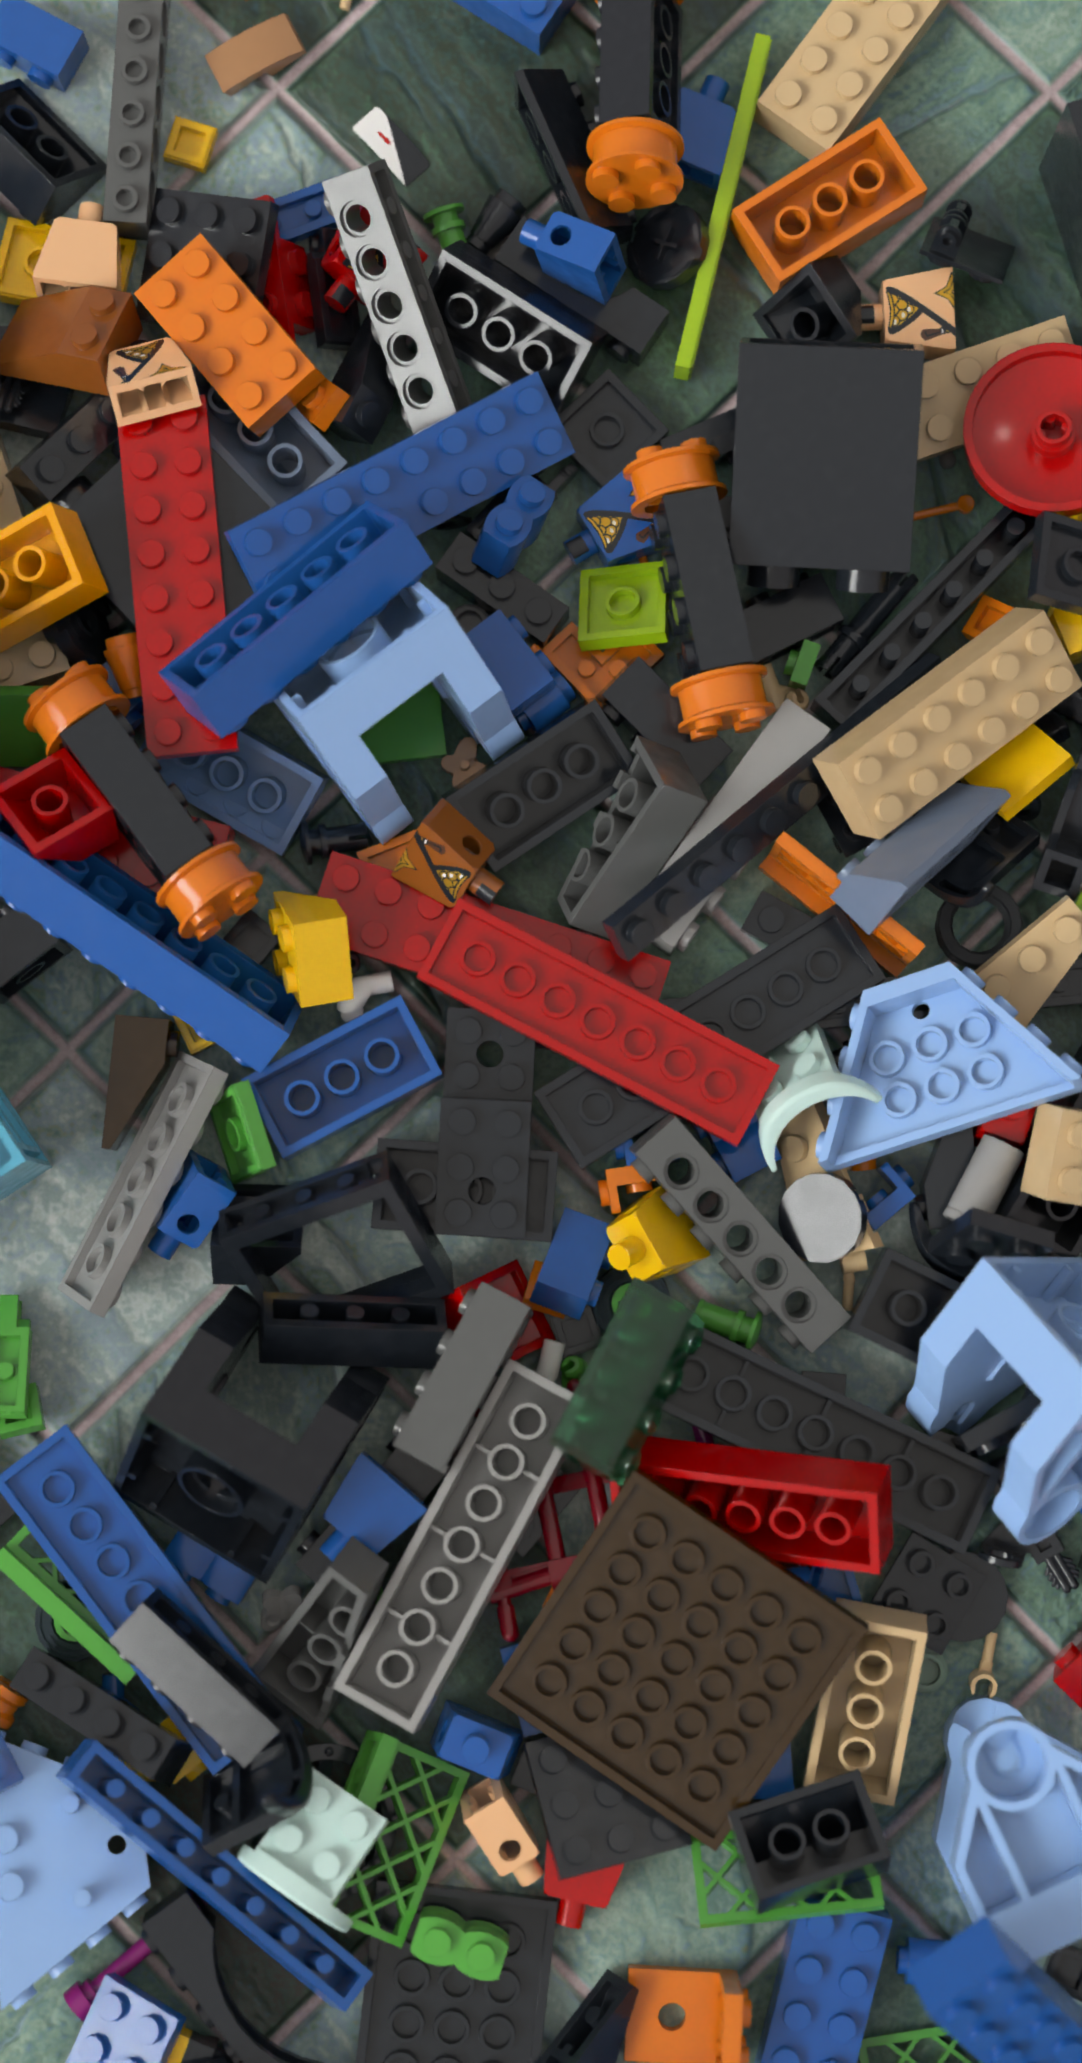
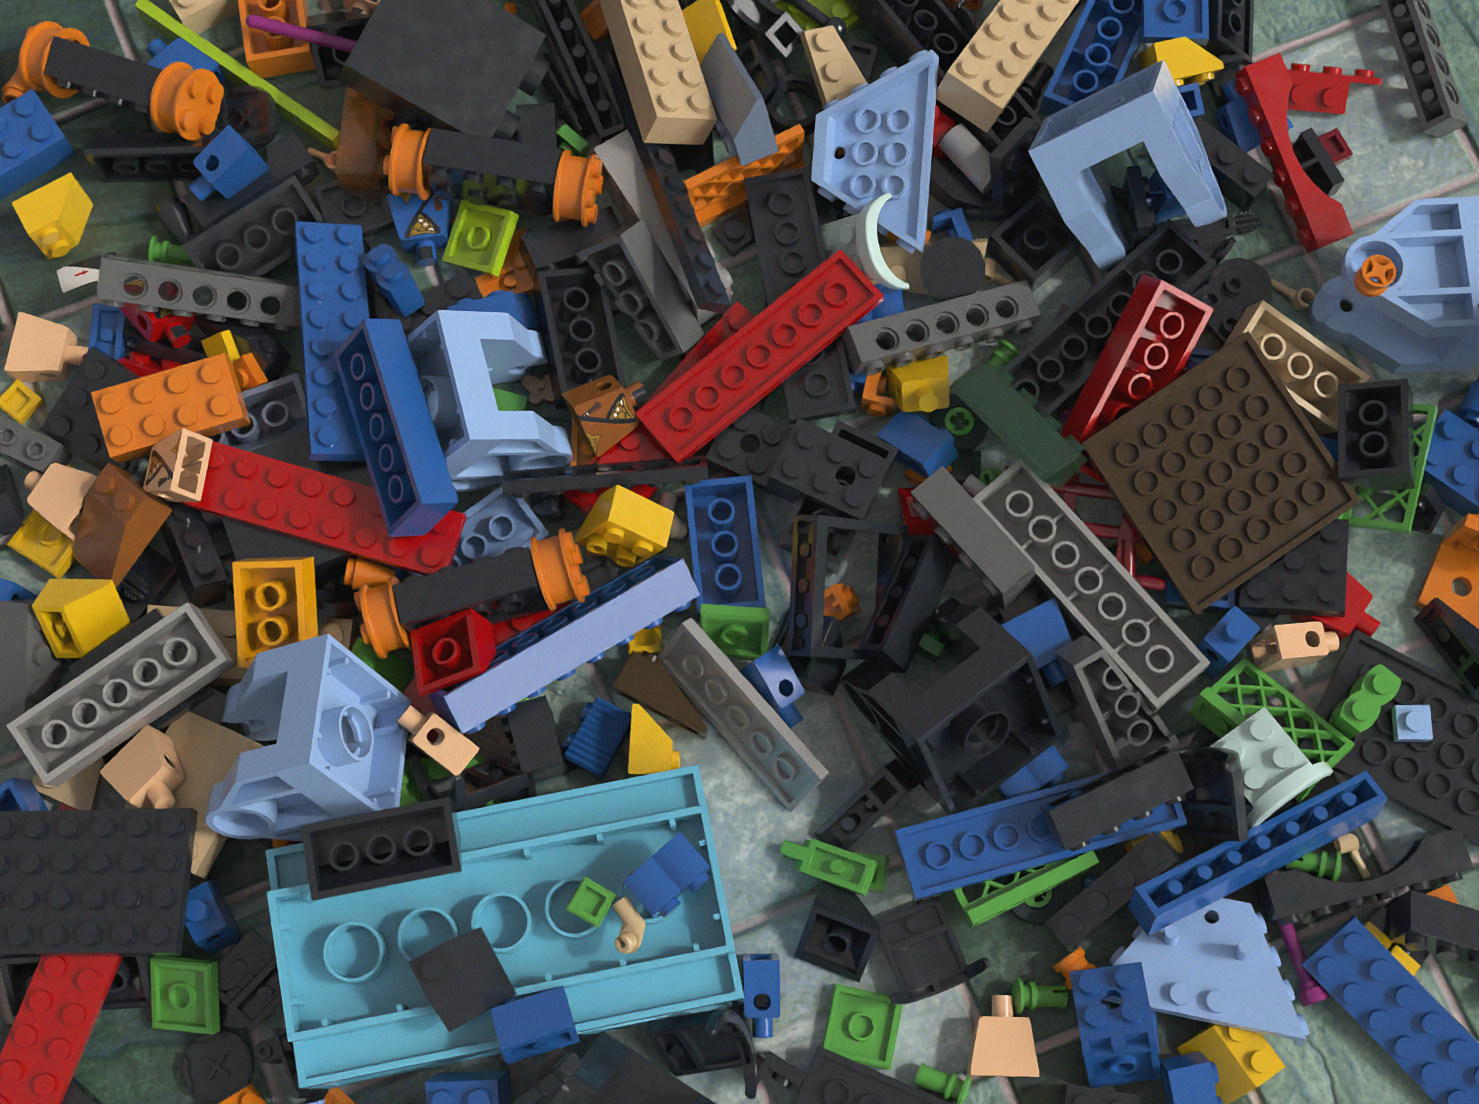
camera: 70 degrees left, 10 degrees down
(52, 1022) = (597, 738): none -> blue brick
(54, 1092) = (650, 746): none -> yellow slope
(91, 1376) = (867, 806): none -> black slope
(242, 1957) = (1319, 864): none -> bright green pin
(262, 141) = (42, 350): none -> light nougat torso
(284, 1984) = (1350, 844): none -> tan hand
(324, 1378) = (930, 646): none -> green plate
(333, 1244) = (841, 602): none -> orange bracket
(342, 357) = (221, 343): none -> yellow tile
(364, 894) = (594, 476): none -> black plate
(432, 73) = (55, 215): none -> yellow slope
(461, 2011) = (1412, 723): none -> light blue plate
(657, 374) = (328, 159): none -> tan hand
(683, 403) = (362, 142): none -> clear orange brick
(749, 1940) = (1428, 509): none -> black bracket
(795, 262) = (300, 33): none -> magenta piece
(994, 1775) = (1375, 267): none -> orange wheel

